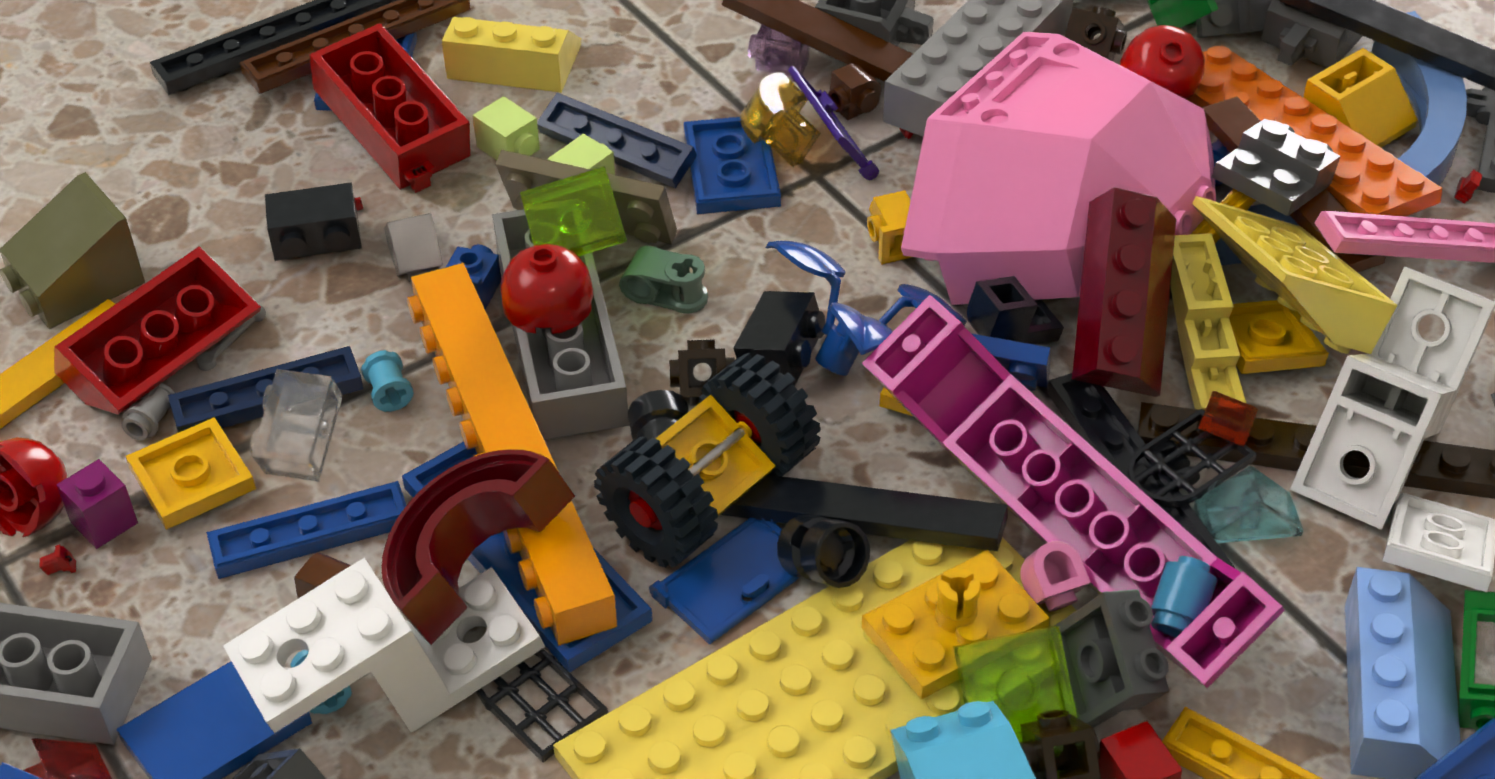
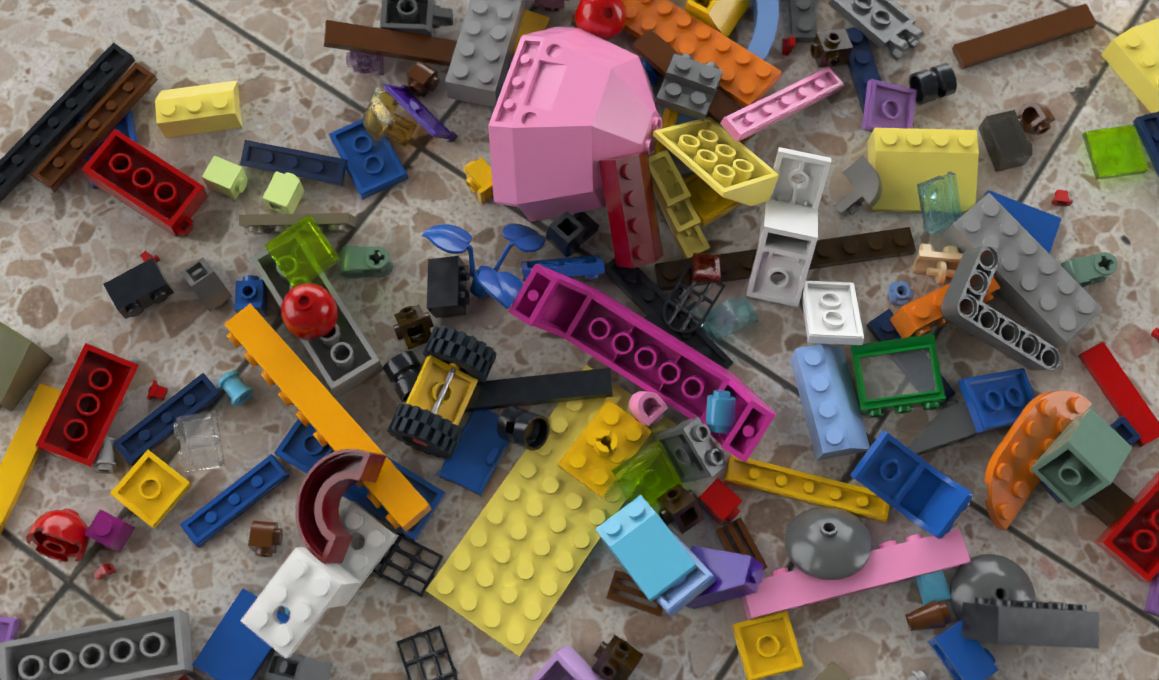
camera: 25 degrees left, 25 degrees up
(267, 356) = (156, 391): none -> red piece

